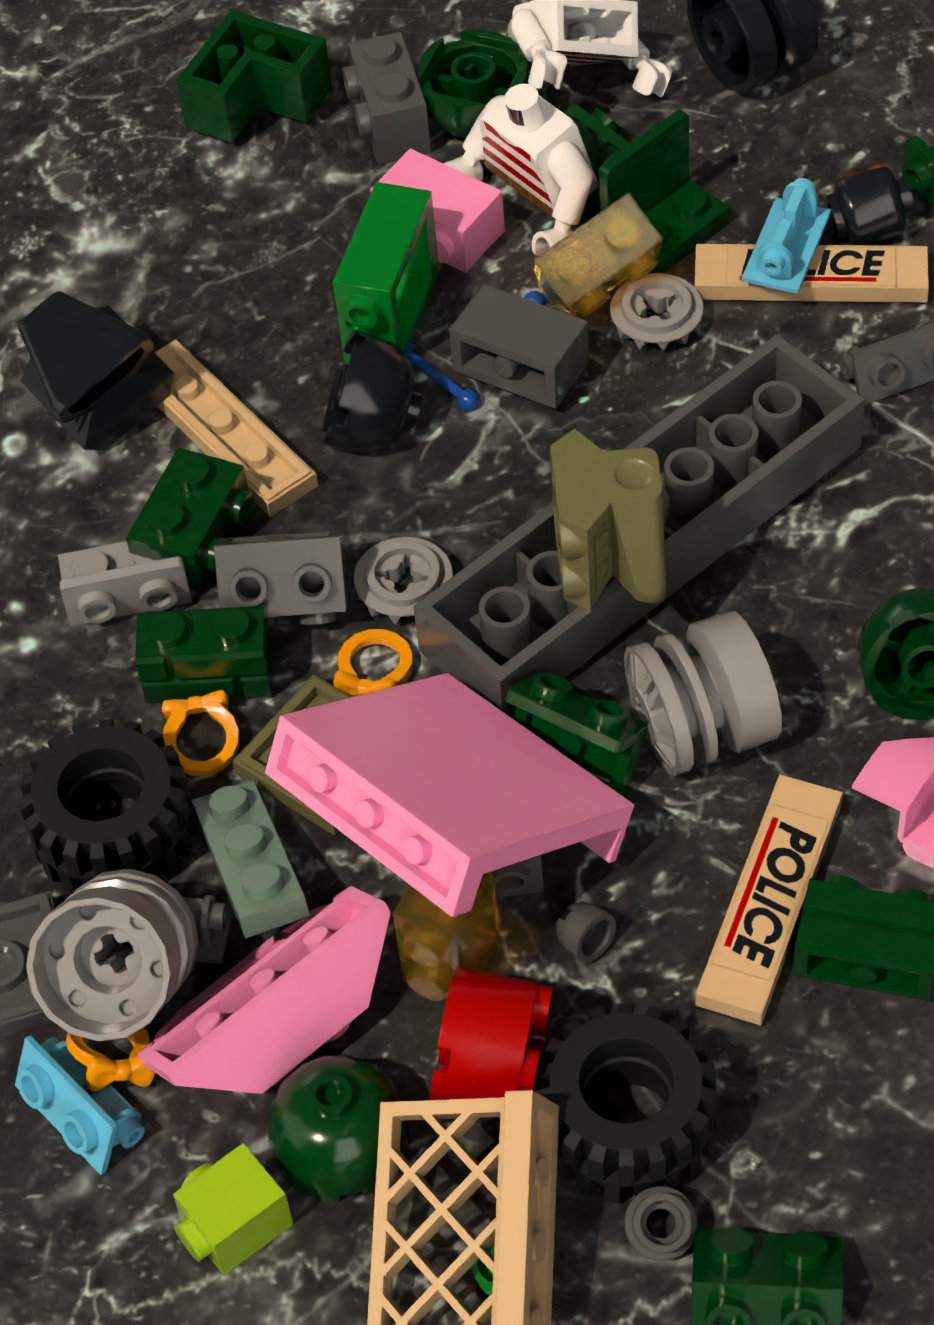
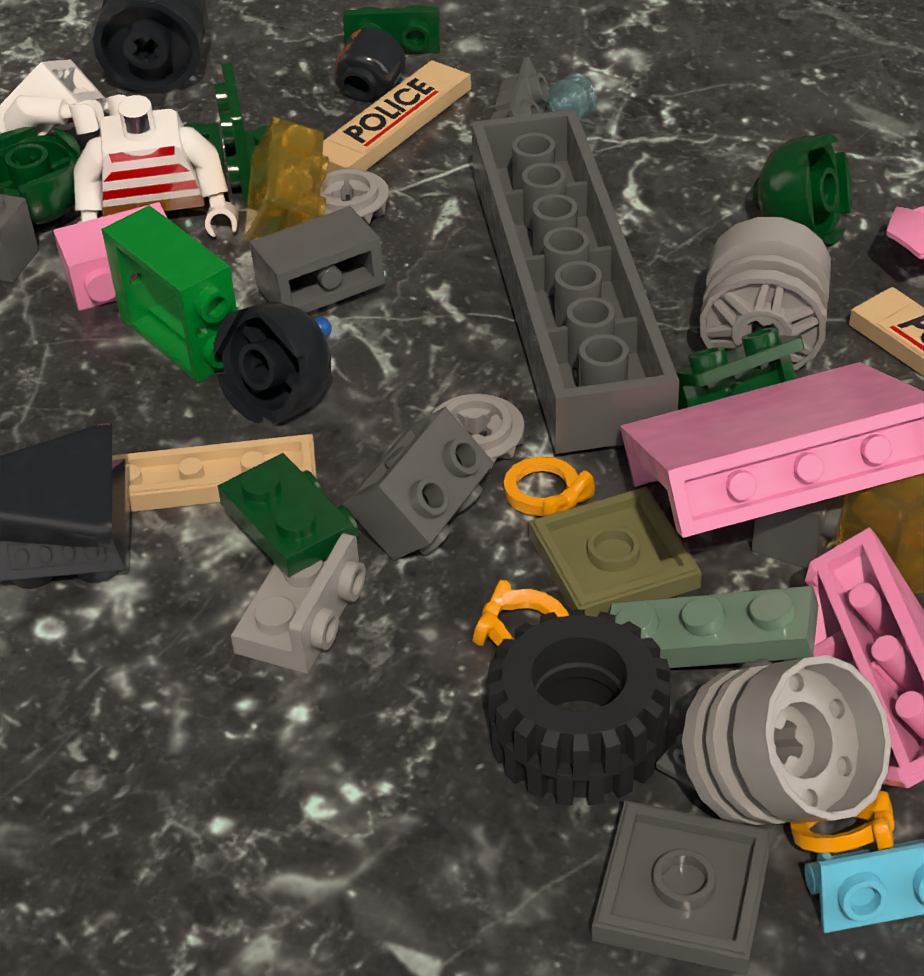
camera: 60 degrees left, 10 degrees down
(204, 652) = (452, 573): dark green brick -> none
(607, 520) = (604, 234): olive piece -> none
(788, 239) = (365, 100): medium azure hinge -> none

